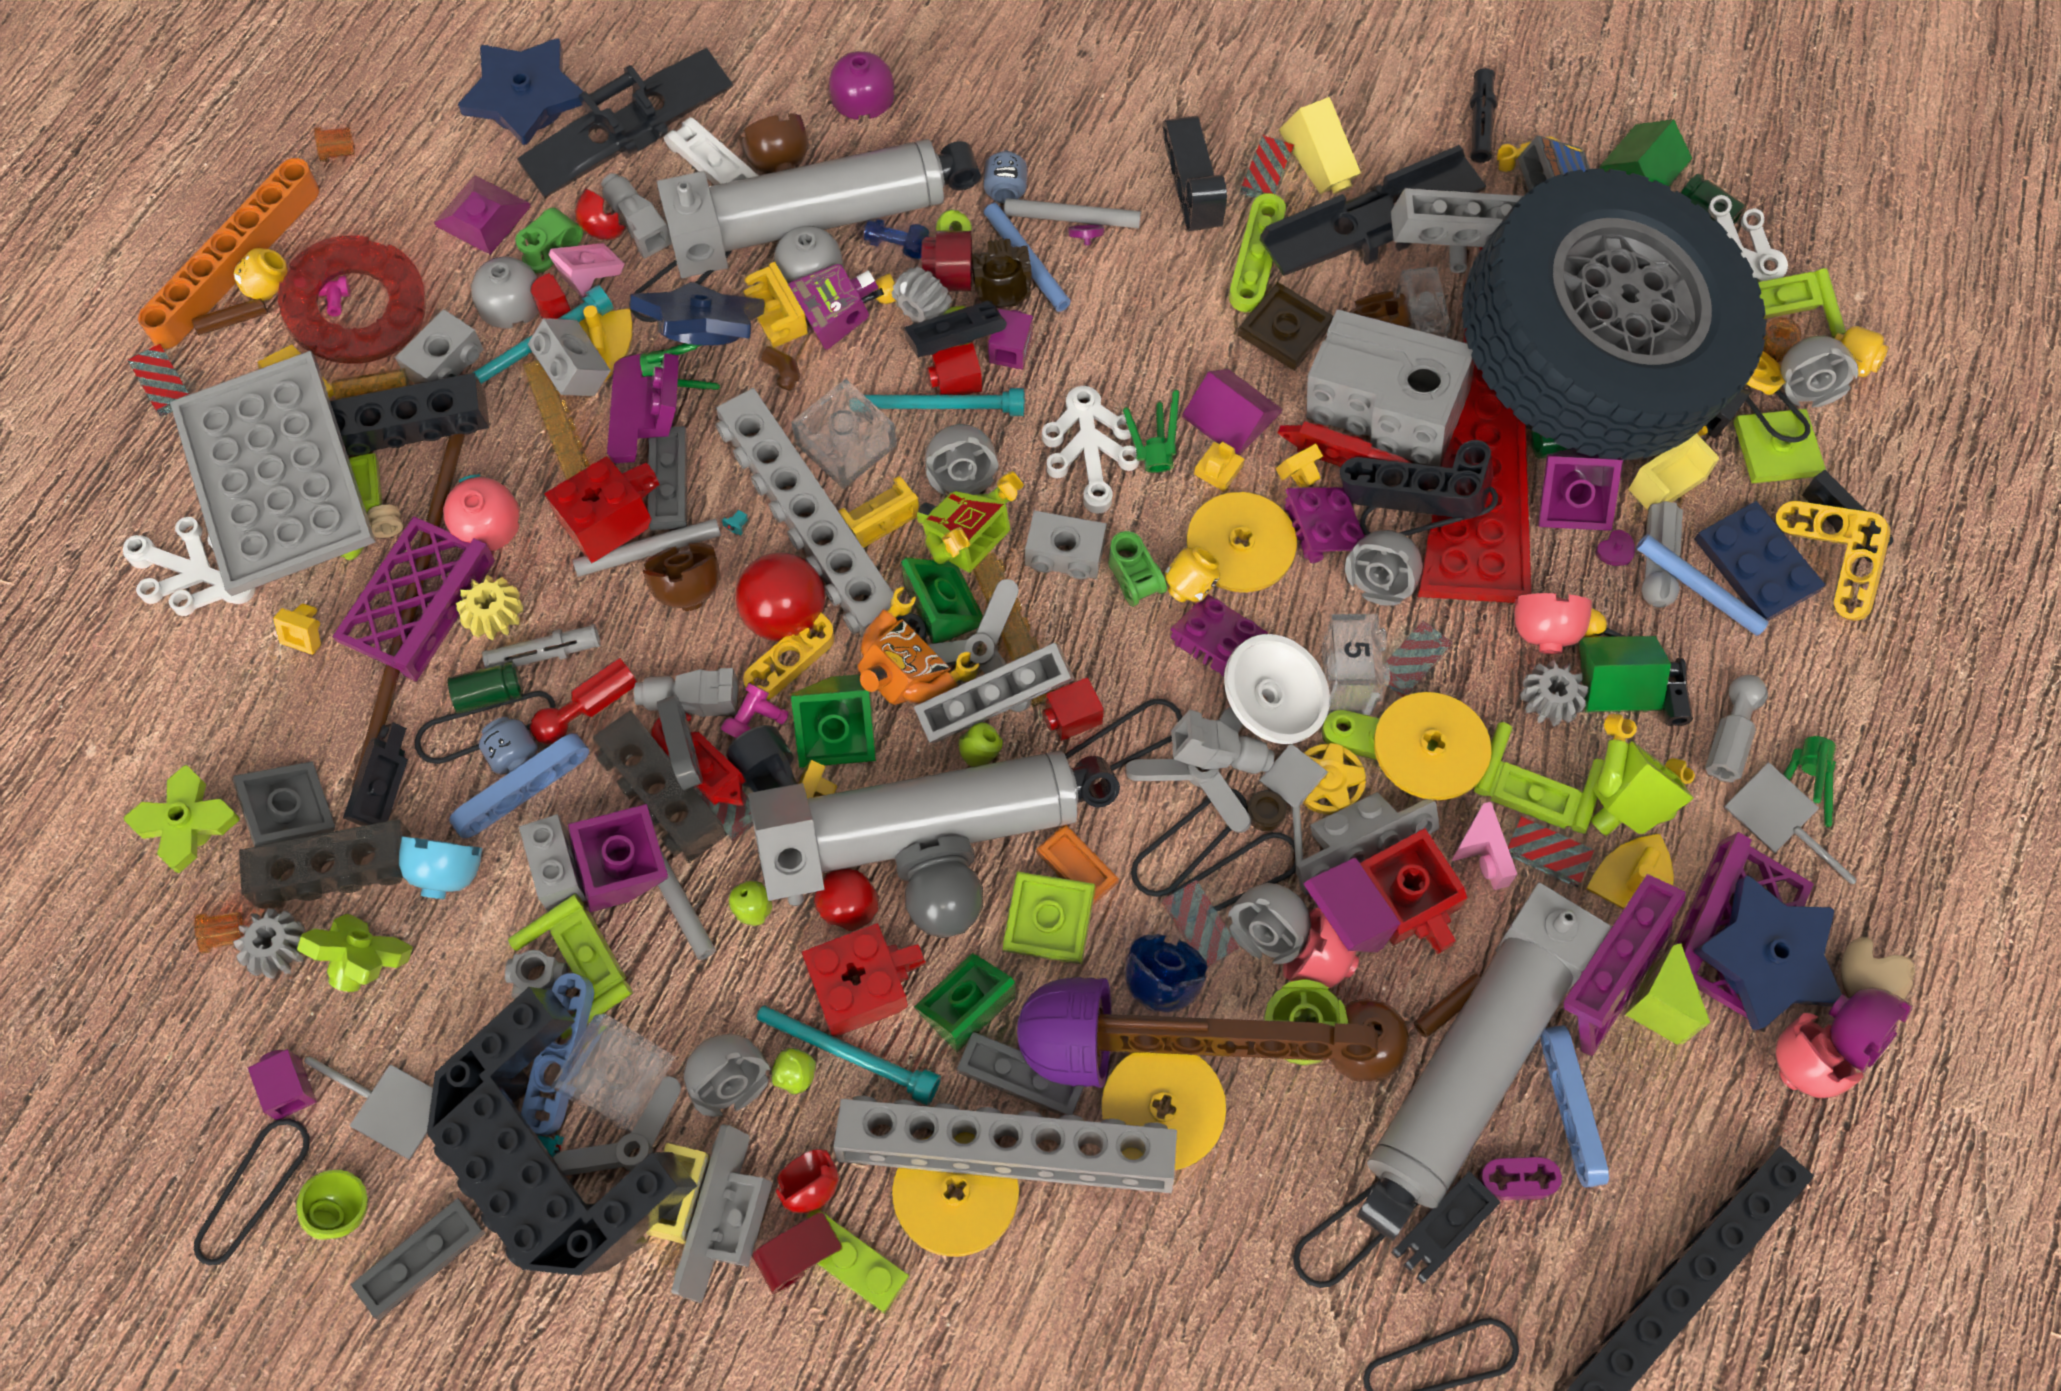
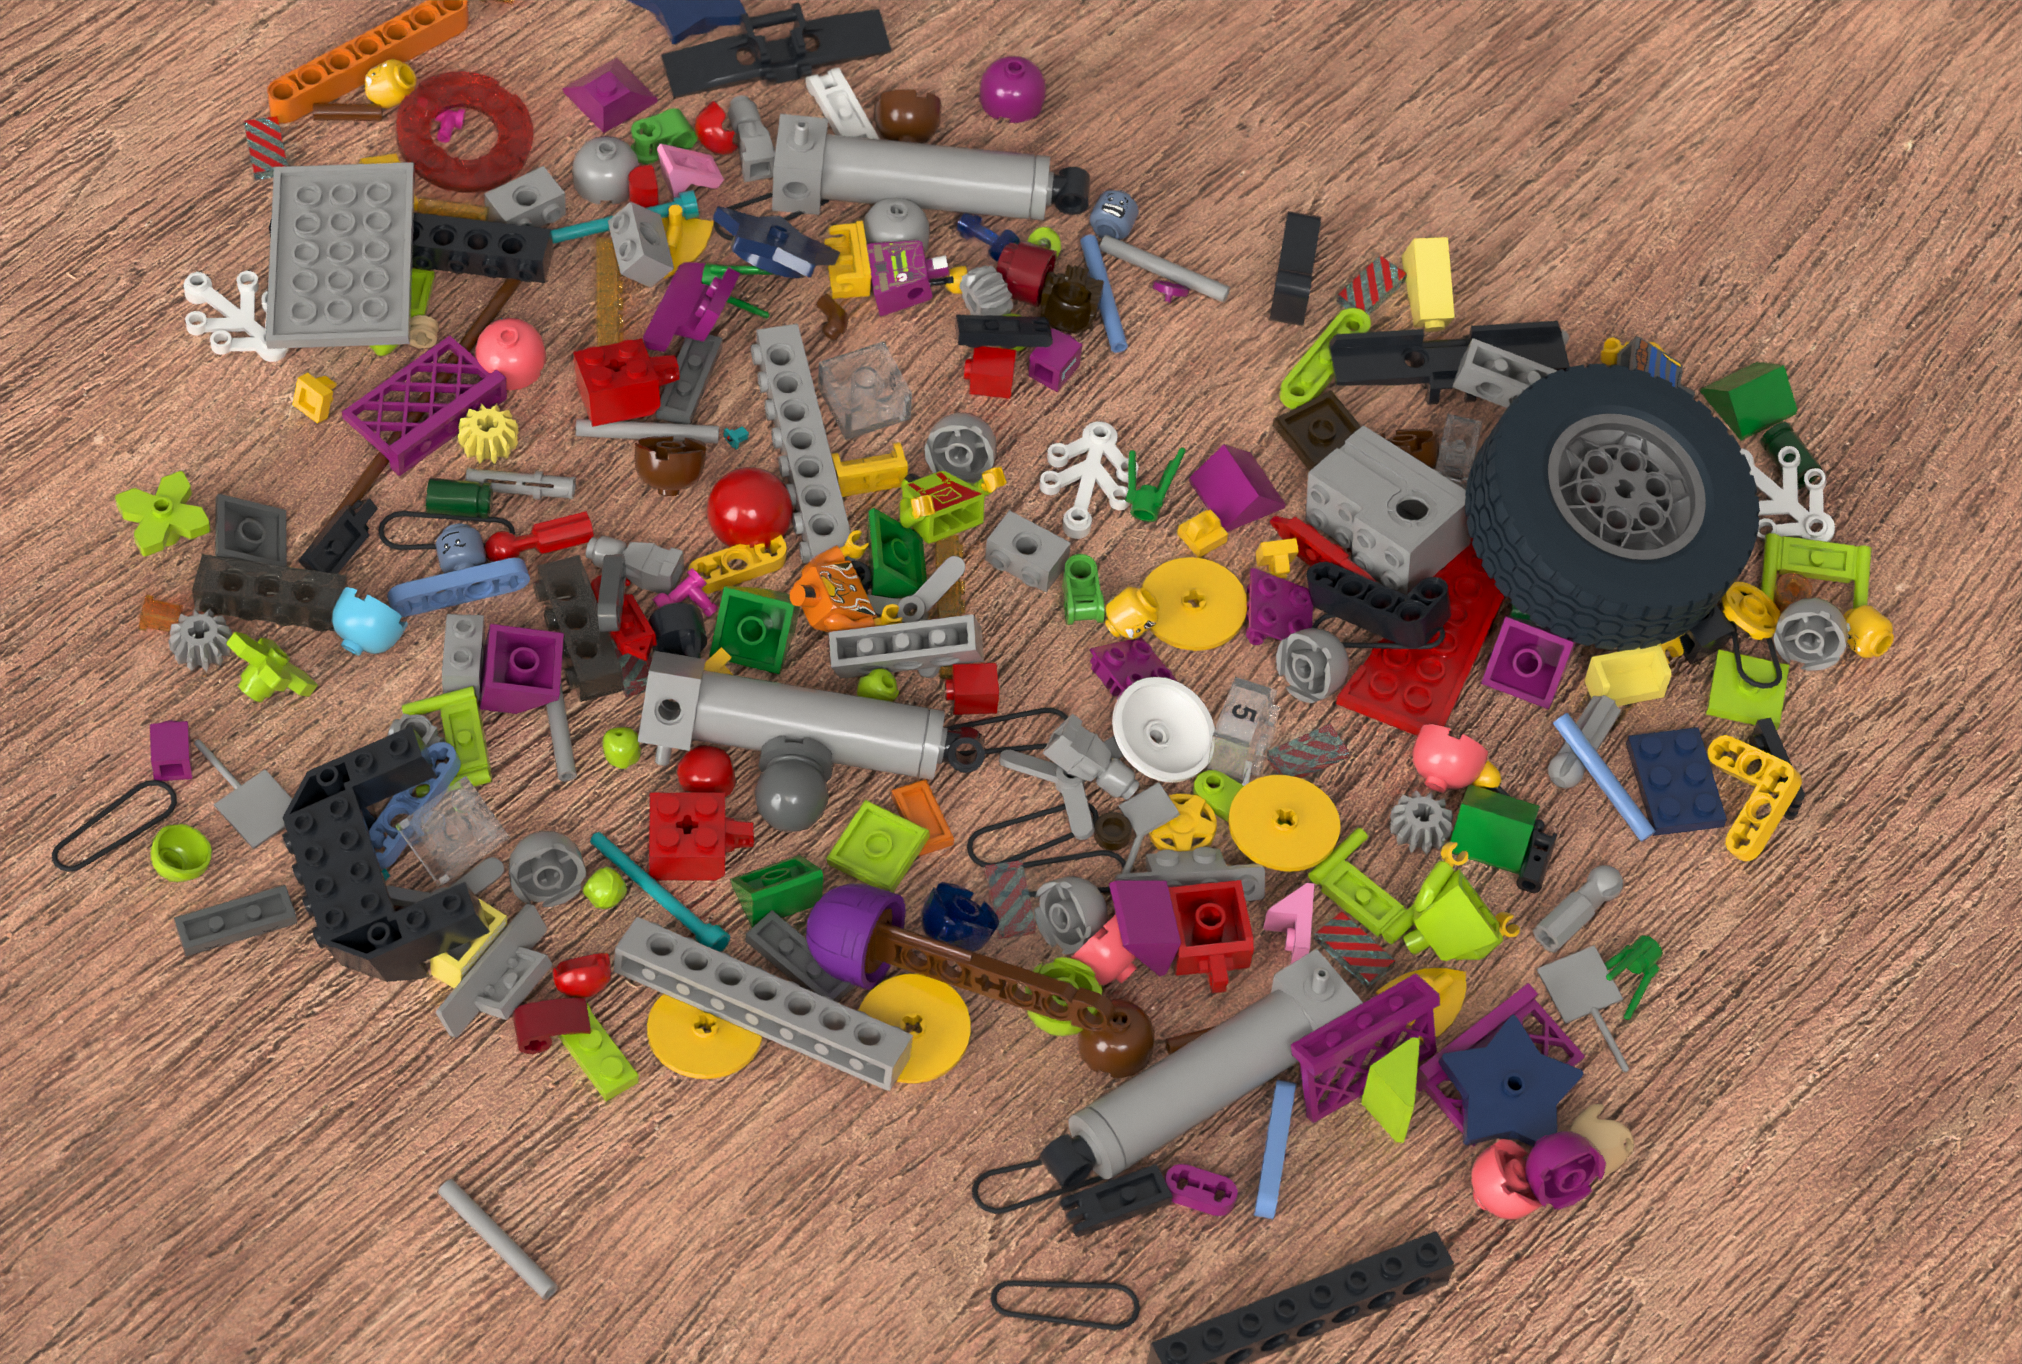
camera: 15 degrees right, 10 degrees down
(1010, 401) = (1032, 415): teal piece -> none
(1483, 86) = (1611, 295): black pin -> none
(1616, 550) = (1542, 727): magenta piece -> none

